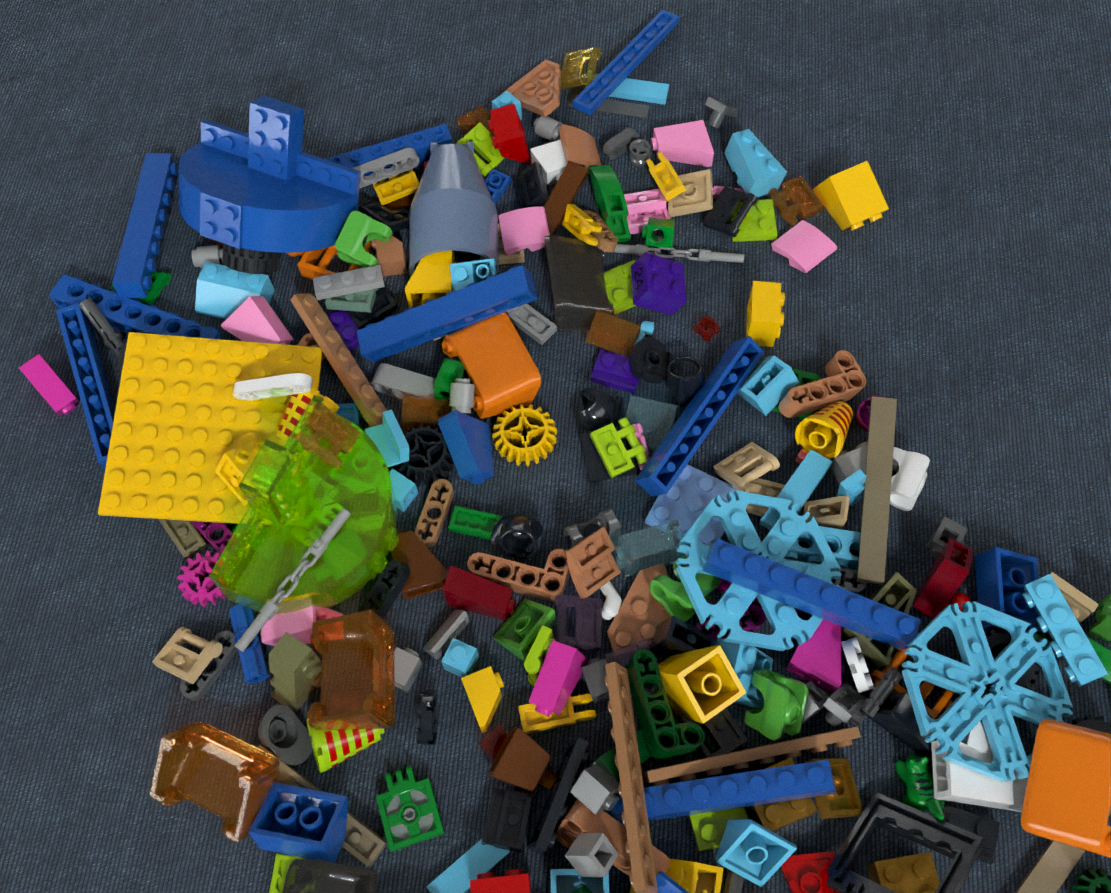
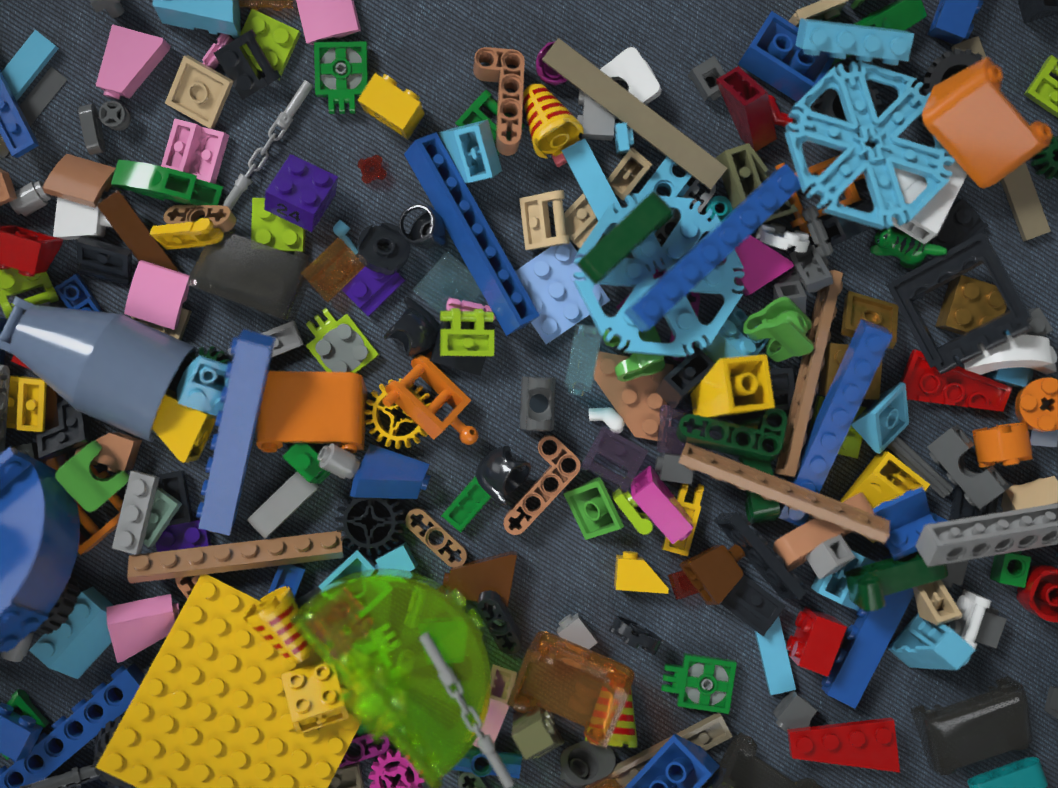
camera: 65 degrees left, 25 degrees up
(273, 386) = (241, 648): white beam -> none
(390, 440) = (348, 555): medium azure panel -> none
(423, 410) = (325, 500): clear orange plate -> none
(450, 629) = (561, 580): light grey slope -> none
(460, 658) = (594, 580): medium azure brick -> none
(477, 594) = (545, 537): dark red slope -> none
(532, 447) = (423, 415): none -> orange piece
(558, 369) = (340, 344): none -> piece
(592, 562) = (571, 420): nougat slope -> none
(596, 789) = (780, 525): brick -> none
(665, 225) = (234, 154): green brick -> none
(666, 177) = (166, 108): yellow hinge -> none
(765, 267) = (341, 73): none -> green piece
(776, 515) = (625, 237): none -> dark green beam

